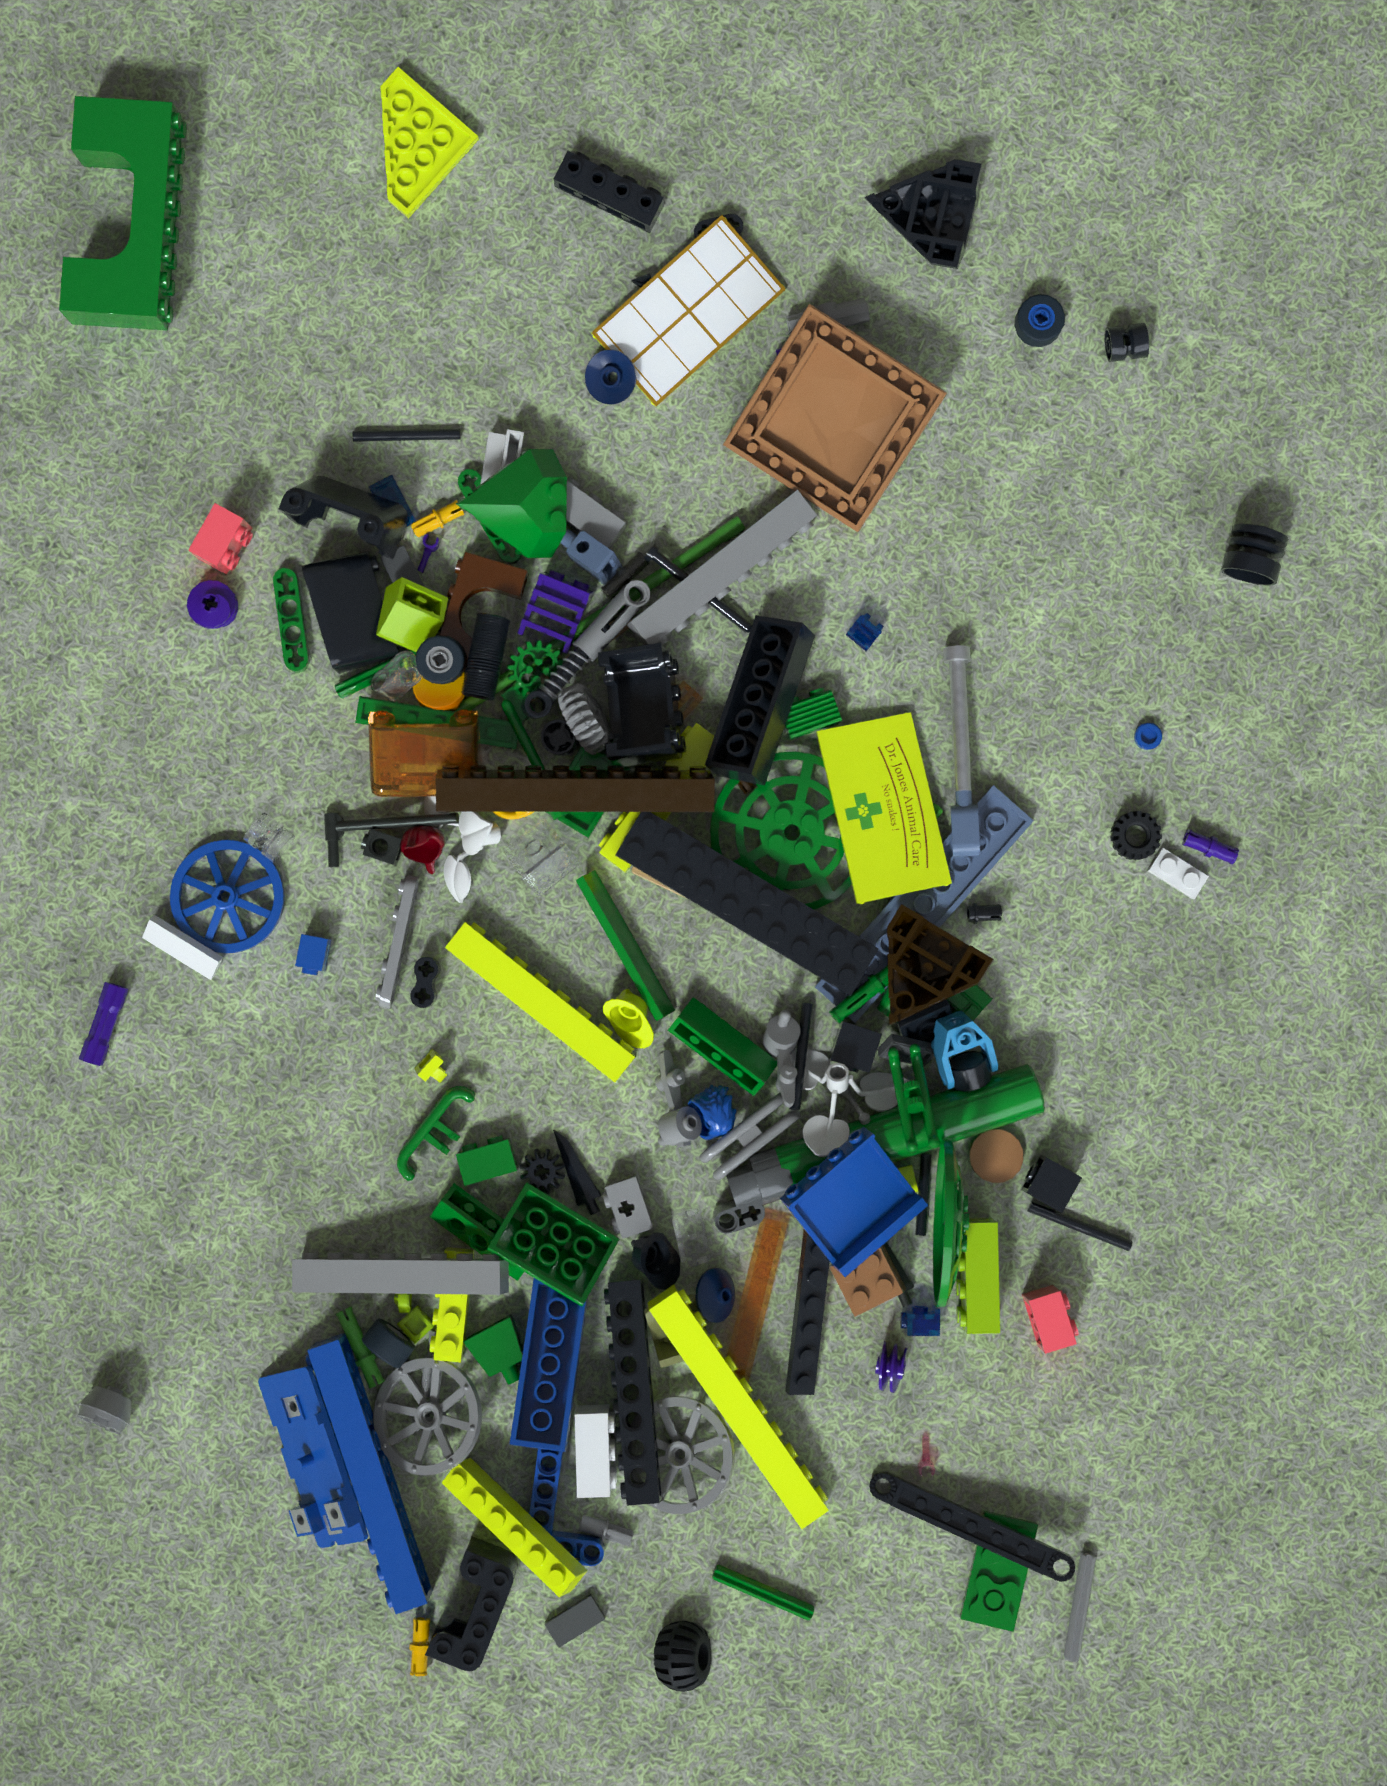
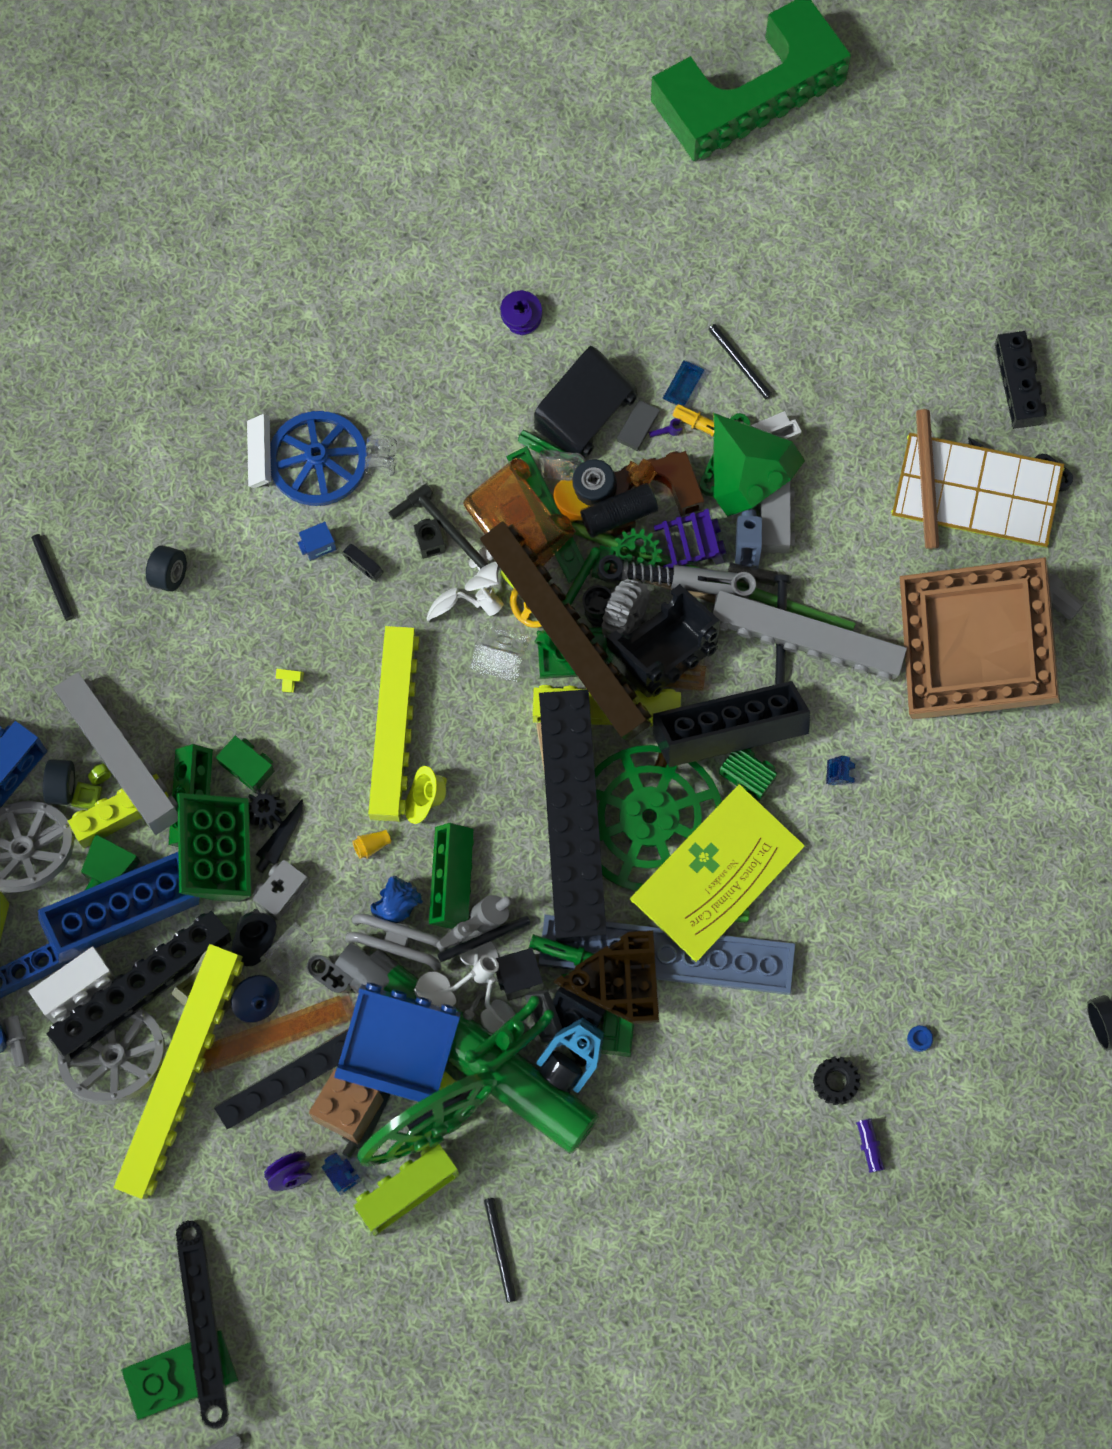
camera: 60 degrees right, 15 degrees down
(97, 1042) = (149, 439): dark purple axle -> none
(176, 1221) = (52, 577): none -> black bar
(221, 539) = (572, 284): coral brick -> none
(243, 1111) = (166, 568): none -> black wheel
(287, 621) = (546, 369): green beam -> none
(363, 924) = (362, 562): none -> black beam
(364, 1357) = (35, 776): bright green pin -> none
(380, 520) = (662, 373): black windscreen -> none
(402, 916) = (386, 586): light grey piece -> none
(410, 614) = (613, 441): lime slope -> none
(419, 140) = (953, 235): neon yellow plate -> none
(423, 845) = (450, 563): dark red hair -> none
(423, 1131) = (239, 703): green piece -> none
(425, 982) = (350, 632): black axle -> none
(463, 610) = (641, 473): none -> clear orange tile
(598, 377) = (884, 460): dark blue dish -> none
(625, 945) = (478, 755): green tile -> none
(640, 1097) = (369, 844): none -> yellow cone
(647, 349) = (927, 479): none -> medium nougat axle
(680, 1123) = (372, 883): light grey piece -> none
(763, 1592) = (44, 1197): green axle -> none
(925, 1461) = (234, 1253): clear pink hand -> none
(963, 814) = (754, 935): flat silver piece -> none
(984, 913) = (692, 1005): black pin -> none
(996, 1156) = (510, 1144): medium nougat tile -> none
(1049, 1318) = (409, 1270): coral brick -> none
(1051, 1183) = (517, 1199): black head -> none
(1178, 873) = (831, 1135): white plate -> none

